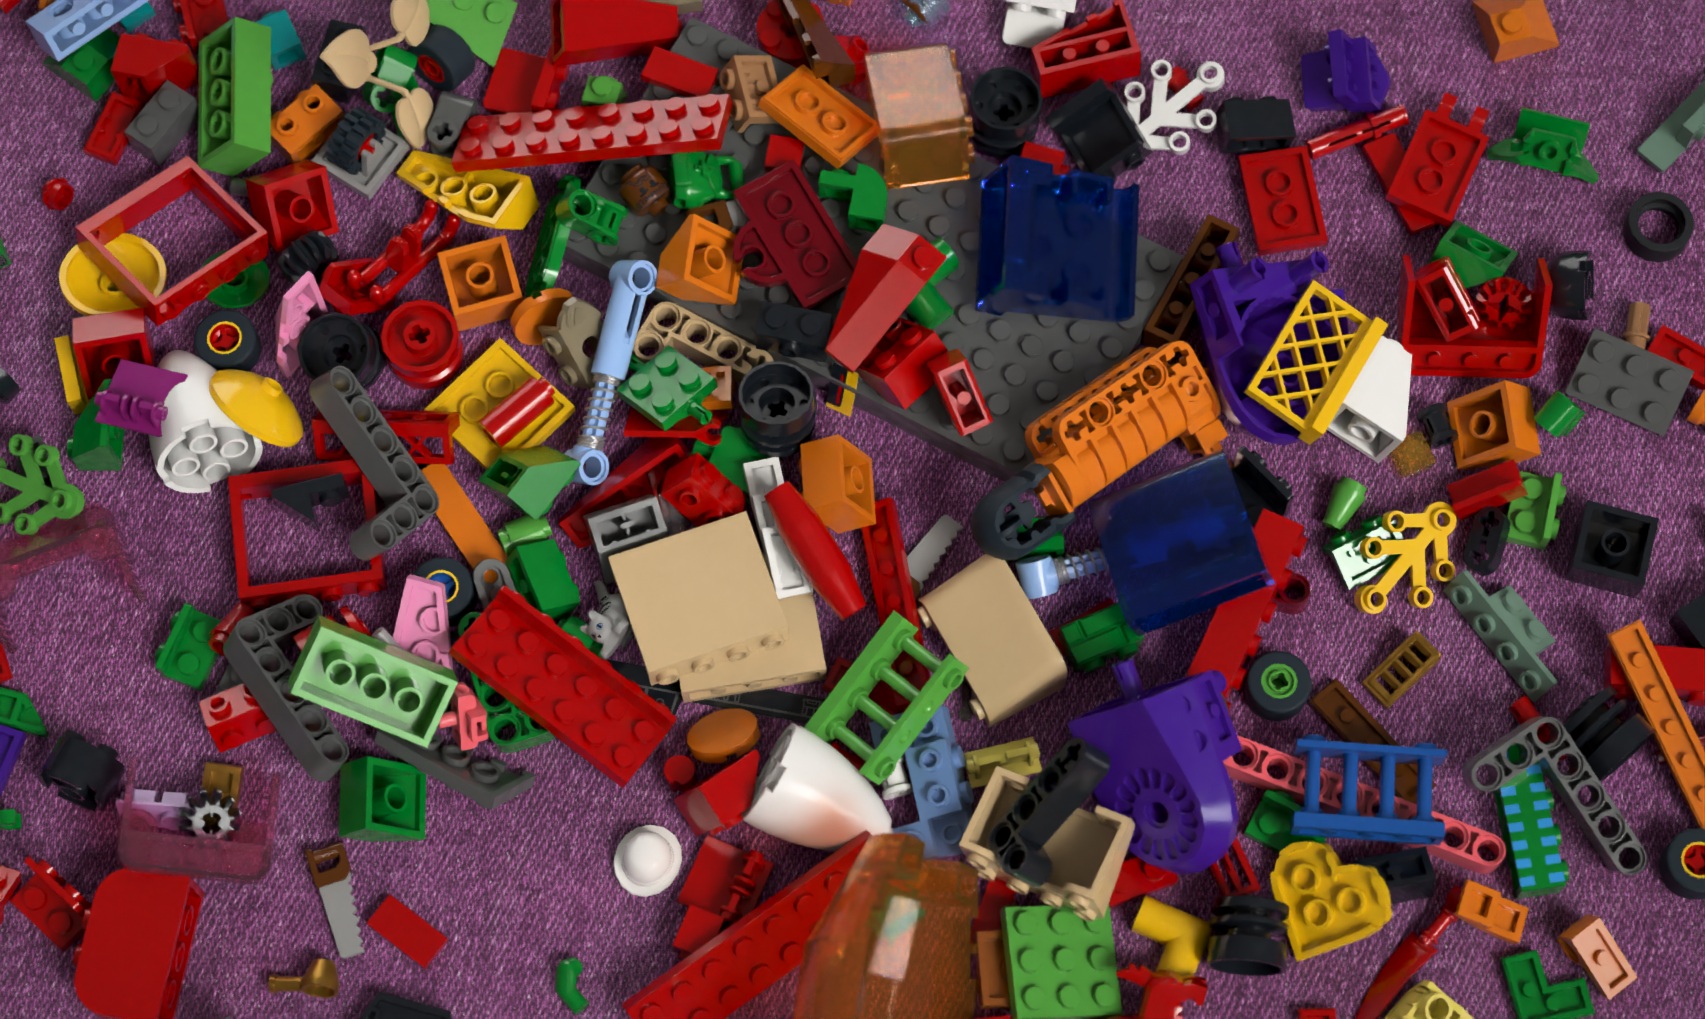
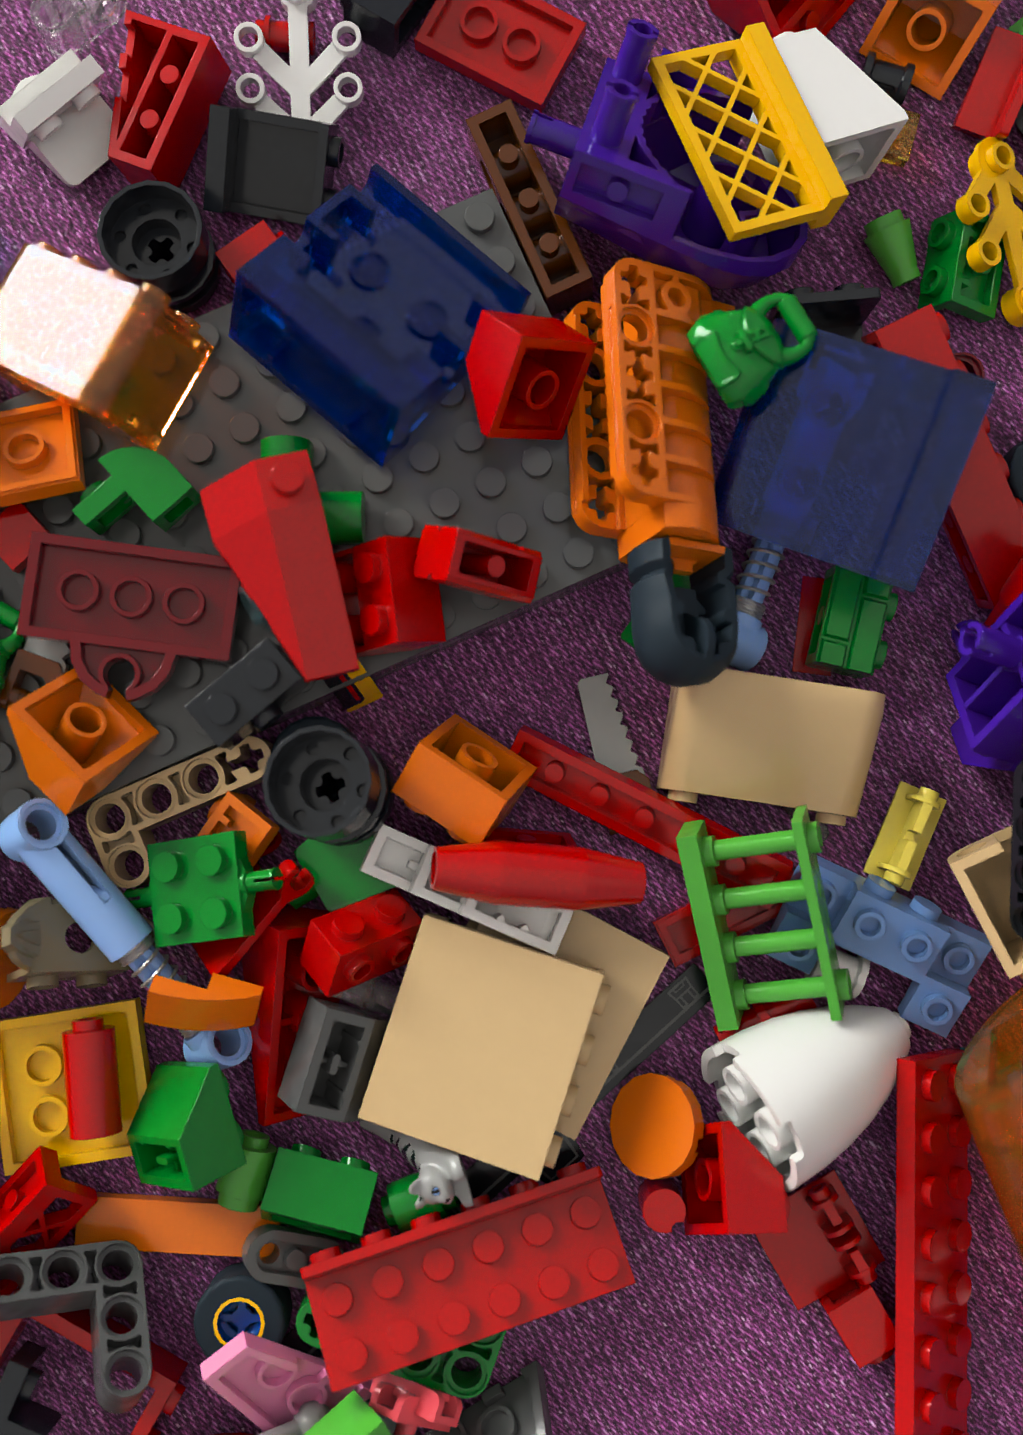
camera: 55 degrees left, 15 degrees up
(609, 442) = (221, 1006): none -> orange slope
(647, 860) = (724, 1303): white hat -> none
(1083, 342) = (526, 374): none -> red slope
(1185, 438) = (744, 349): none -> green piece

